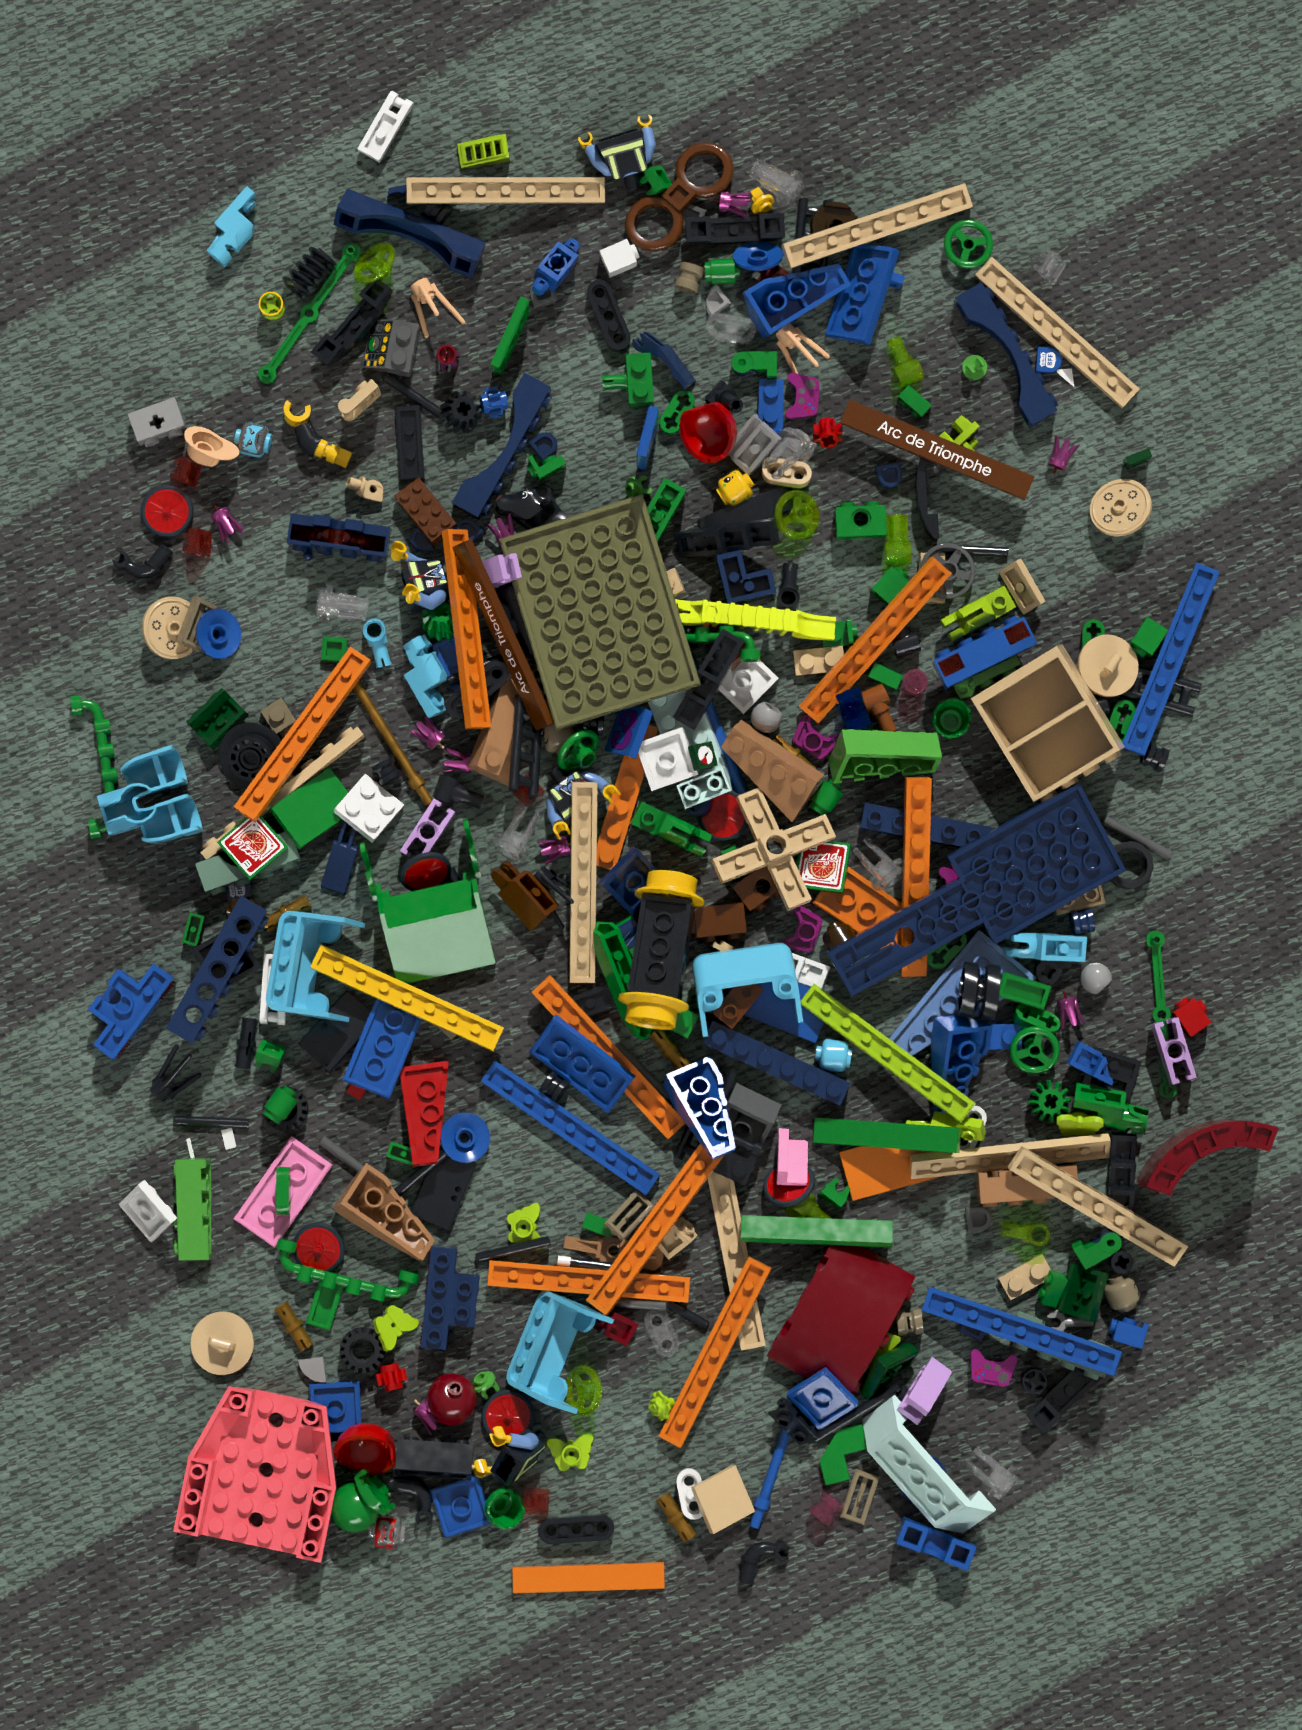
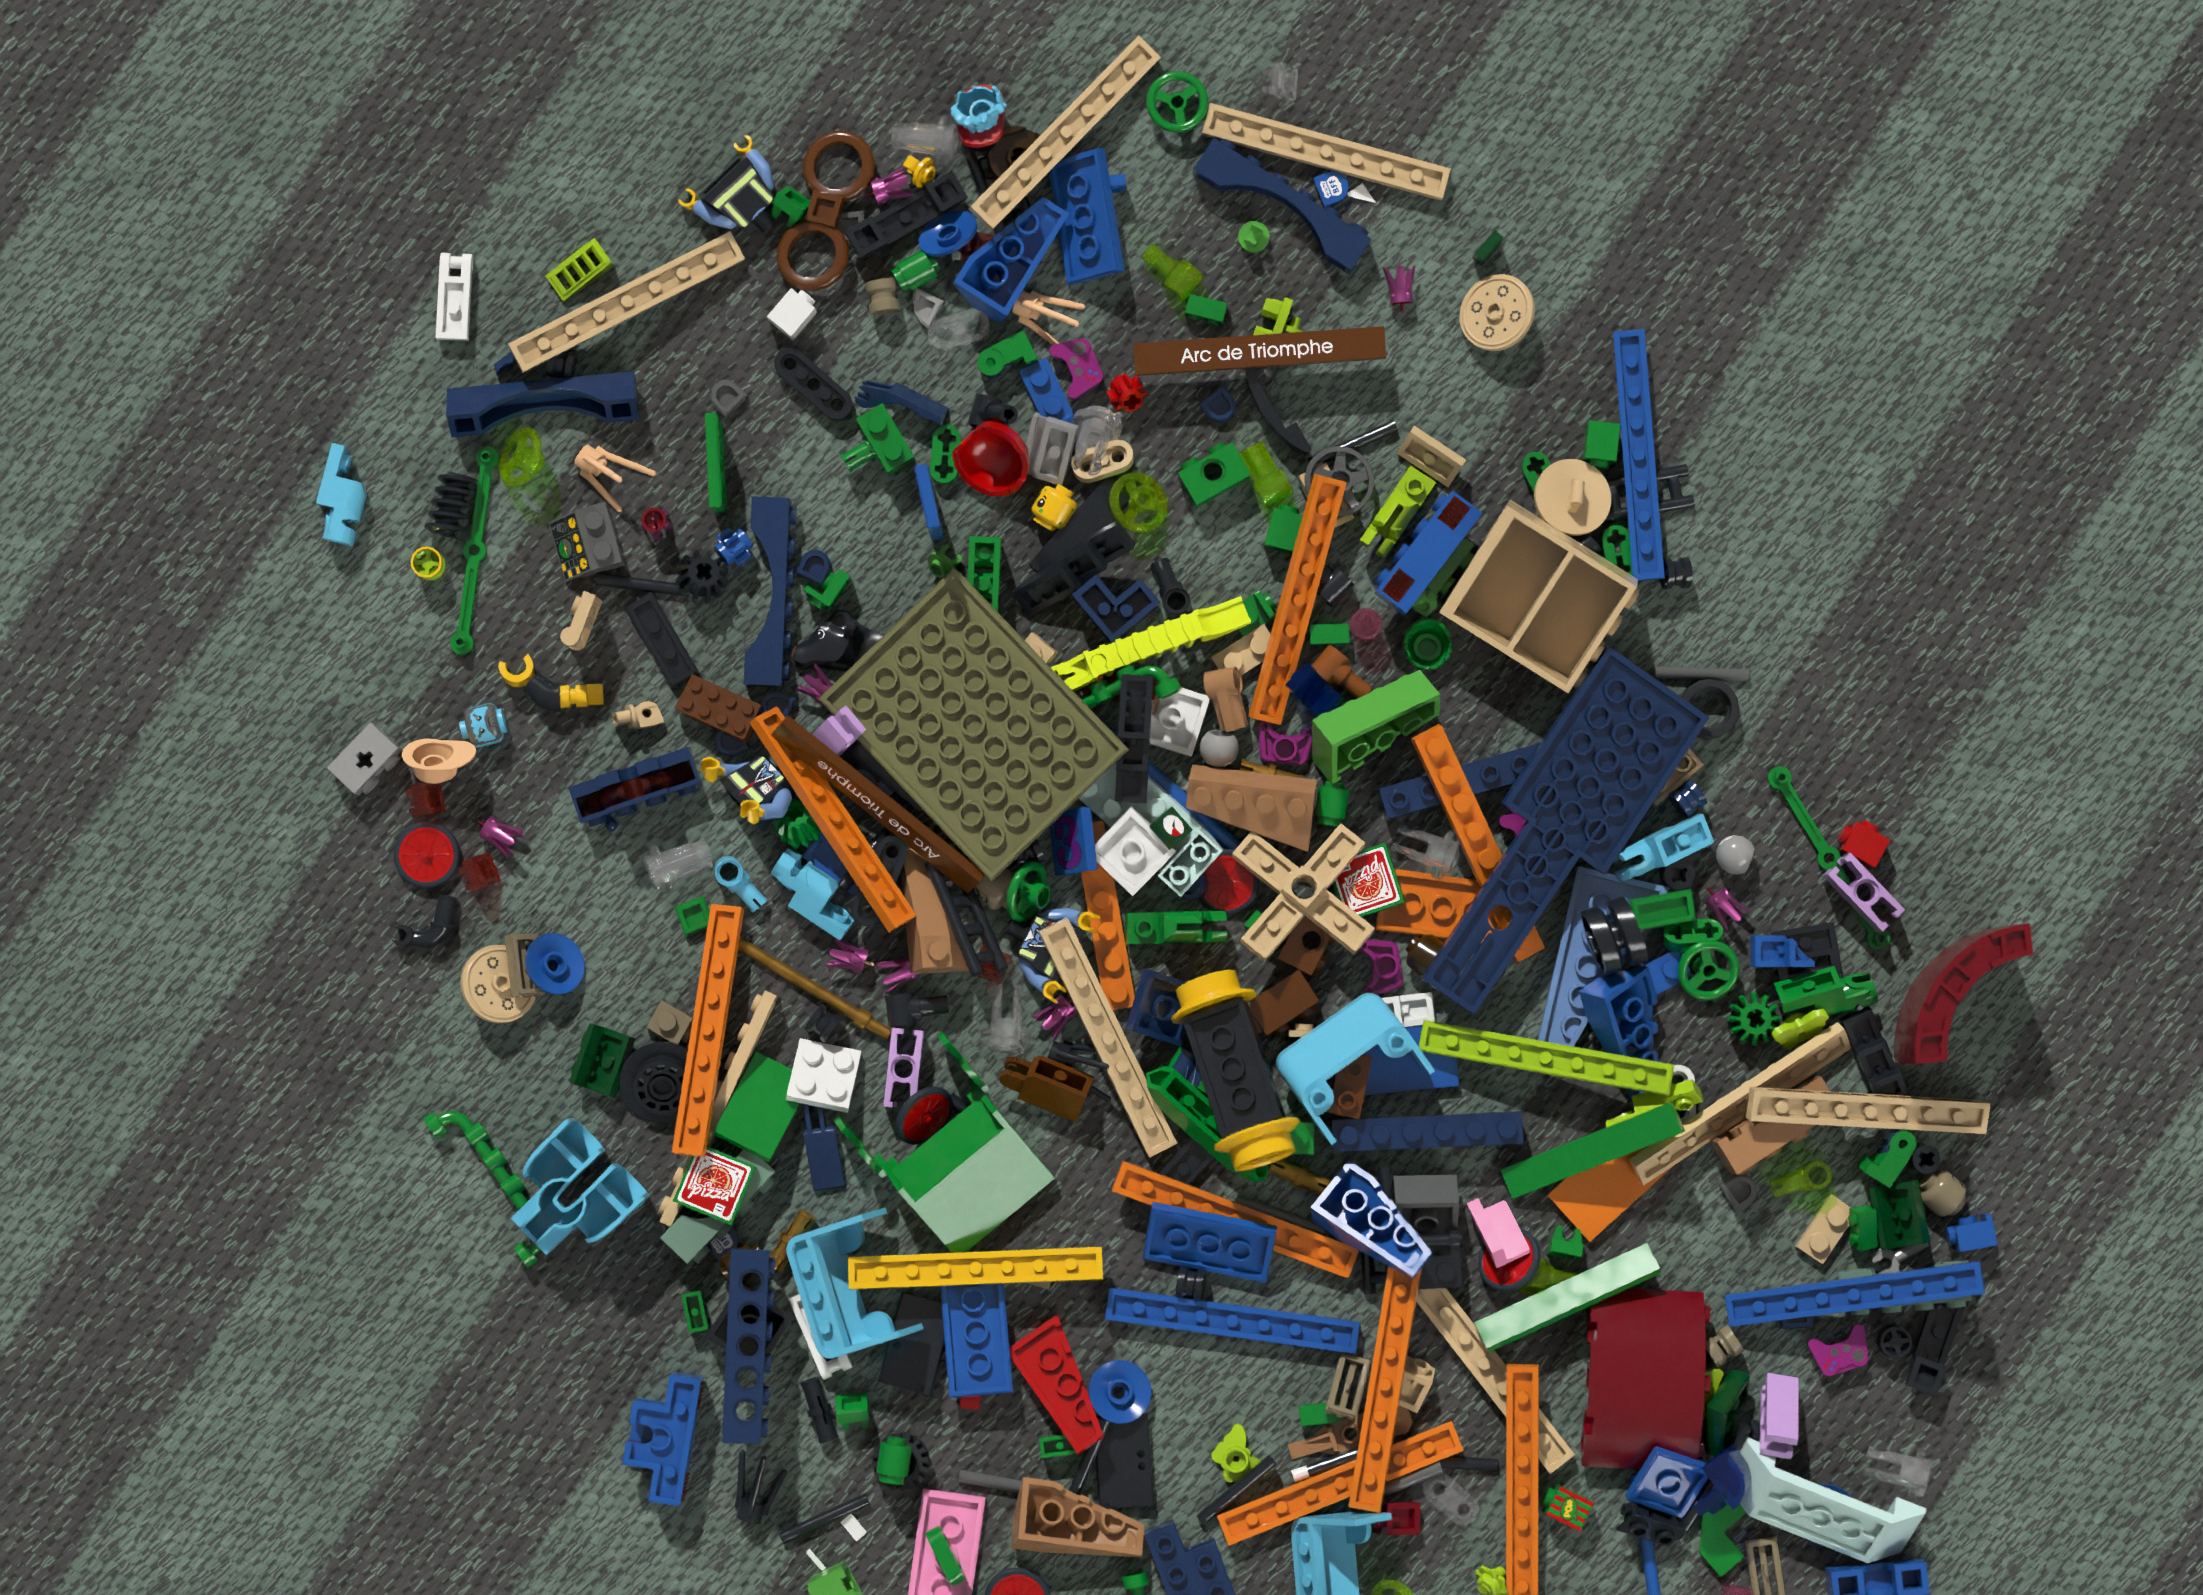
camera: 25 degrees left, 0 degrees up
(356, 325) = (534, 537): black slope -> none
(549, 279) = (719, 376): blue piece -> none
(741, 1379) = (1566, 1506): none -> brick
(791, 678) = (1225, 690): none -> medium nougat piece
(822, 183) = (979, 115): none -> medium azure hair
(833, 1055) = (1486, 1090): medium azure head -> none
(867, 1415) = (1731, 1481): none -> clear blue brick
(949, 955) = (1558, 911): green beam -> none

